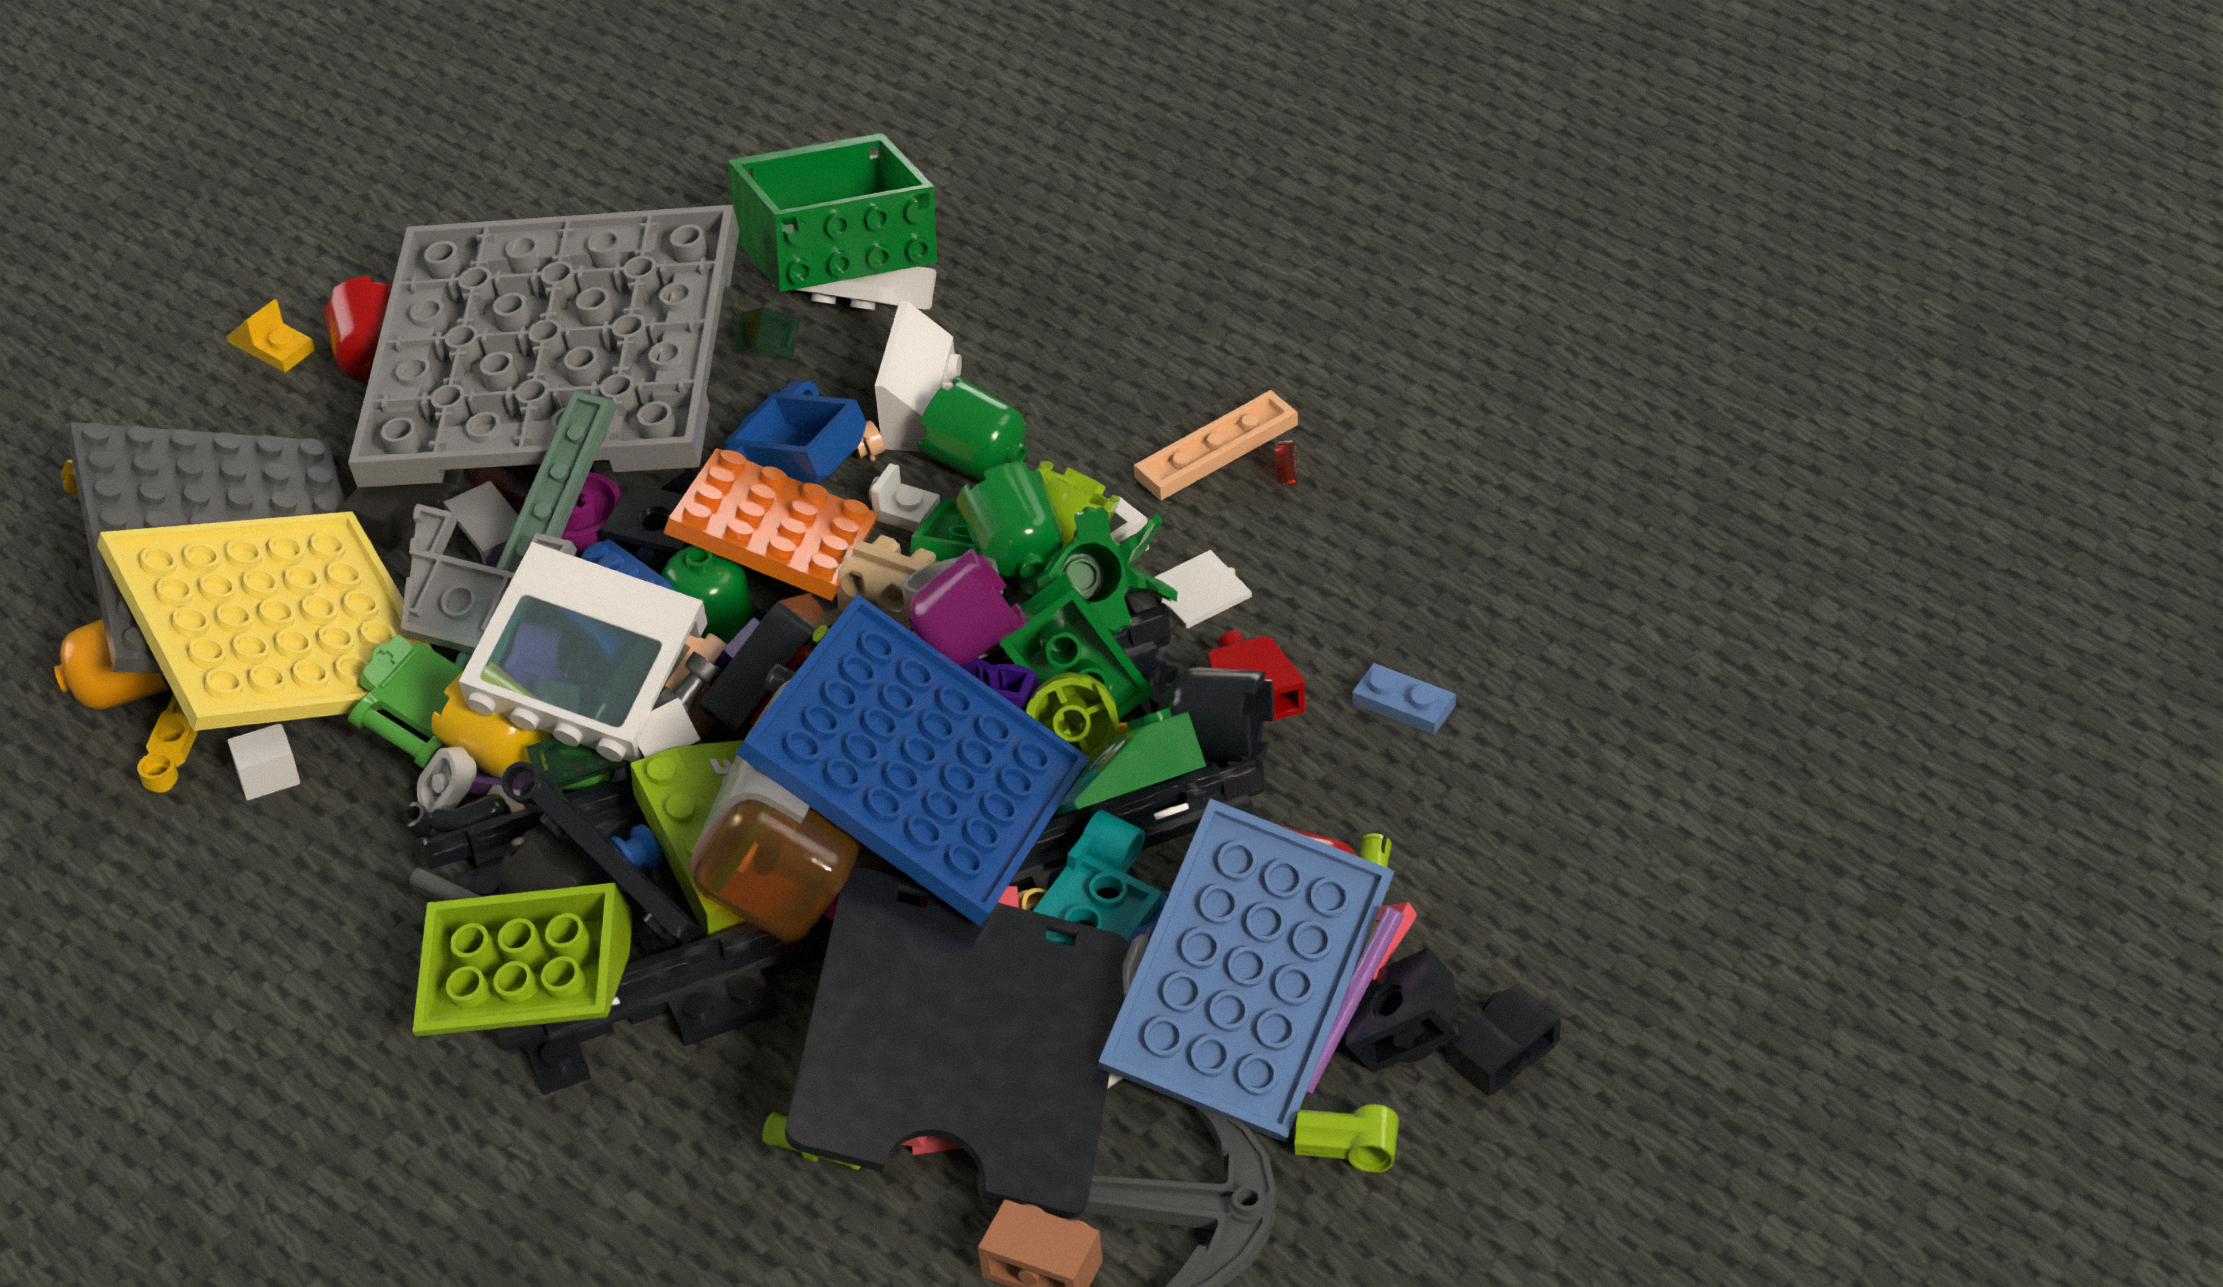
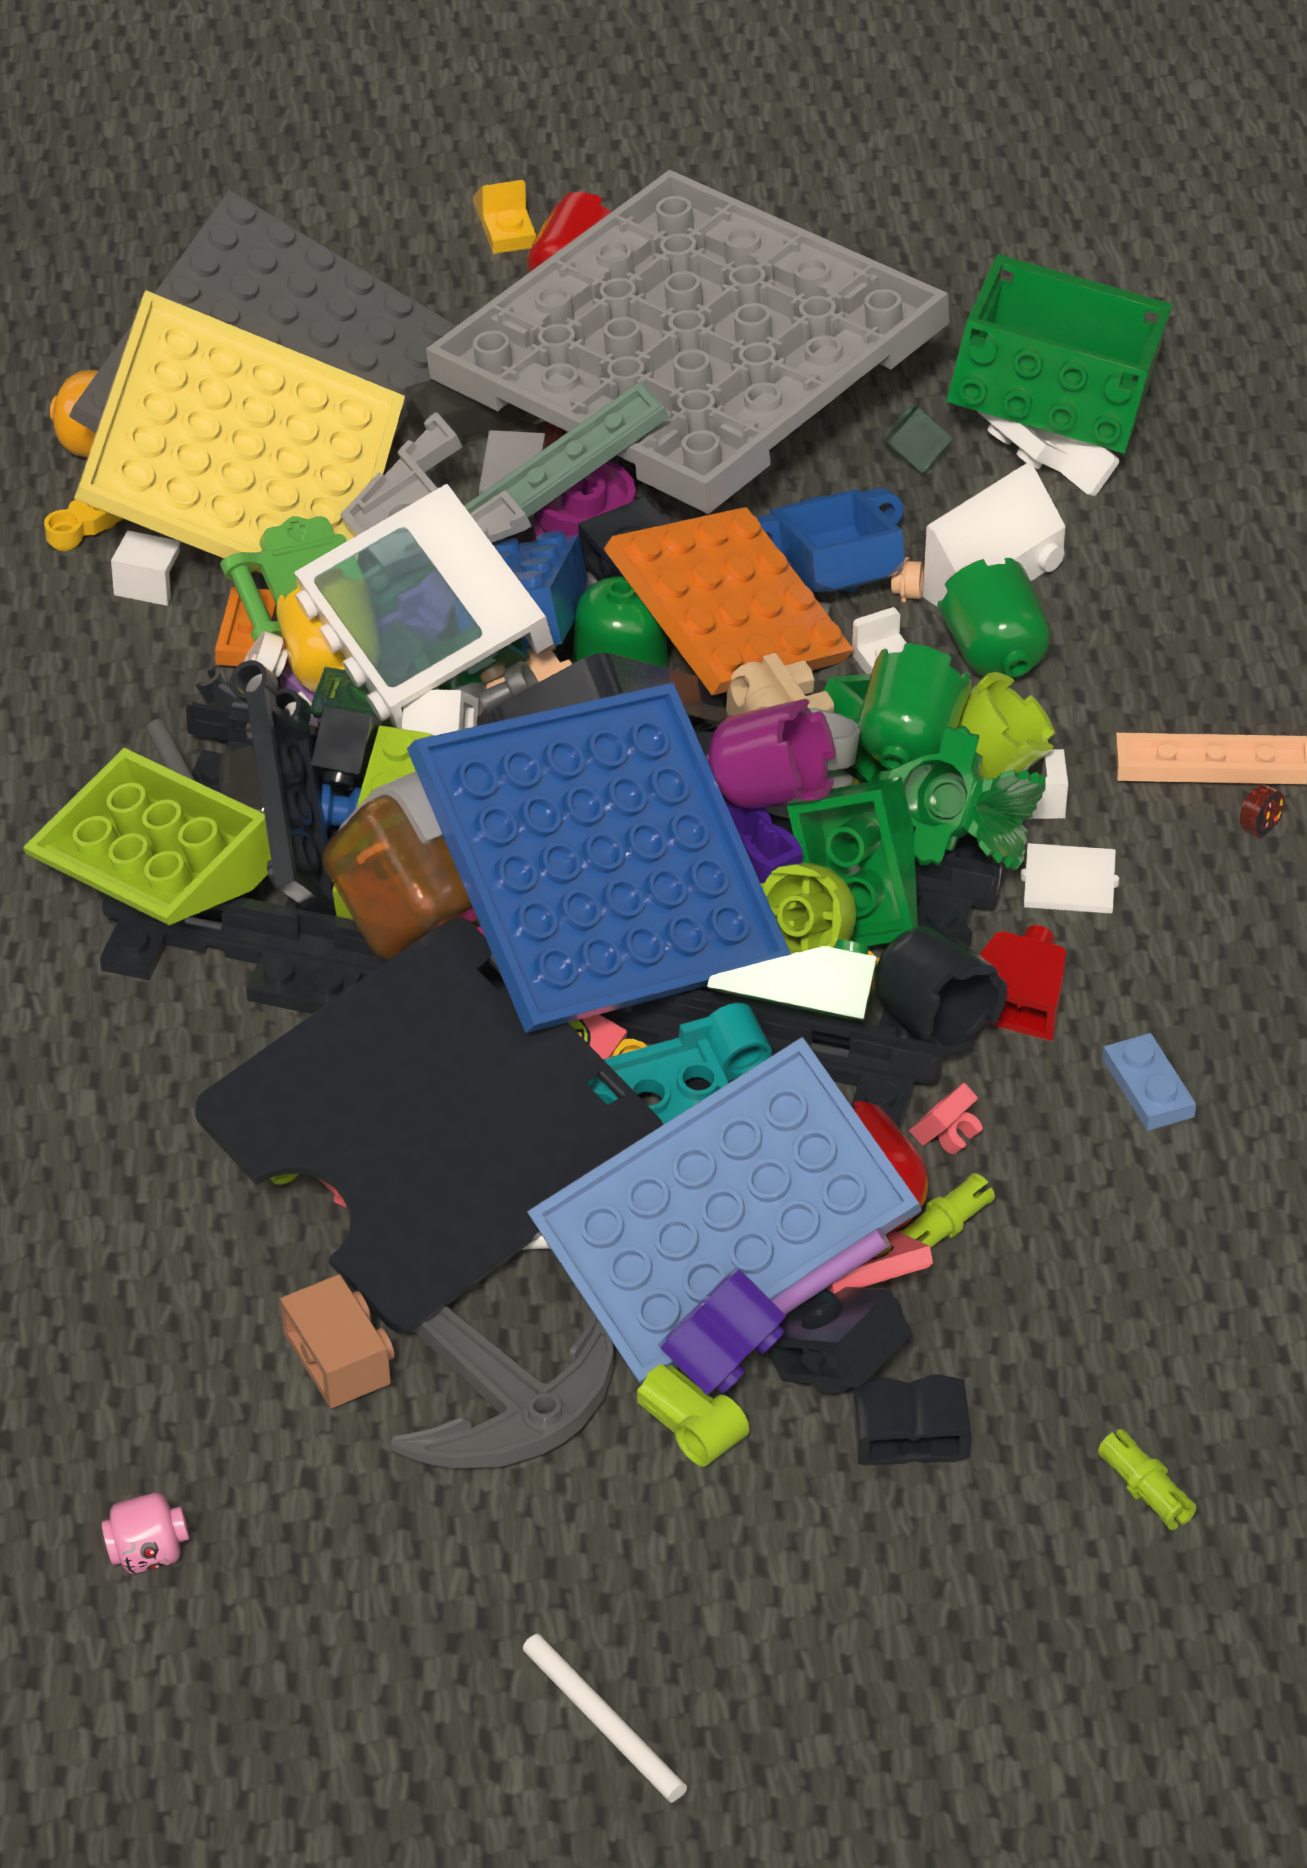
camera: 35 degrees right, 0 degrees up
(388, 764) = (236, 628): none -> orange plate
(611, 797) = (344, 747): none -> black brick
(1302, 807) = (946, 1117): none -> coral tile
(1331, 1056) = (723, 1332): none -> dark purple brick
(1694, 975) = (1147, 1479): none -> lime pin

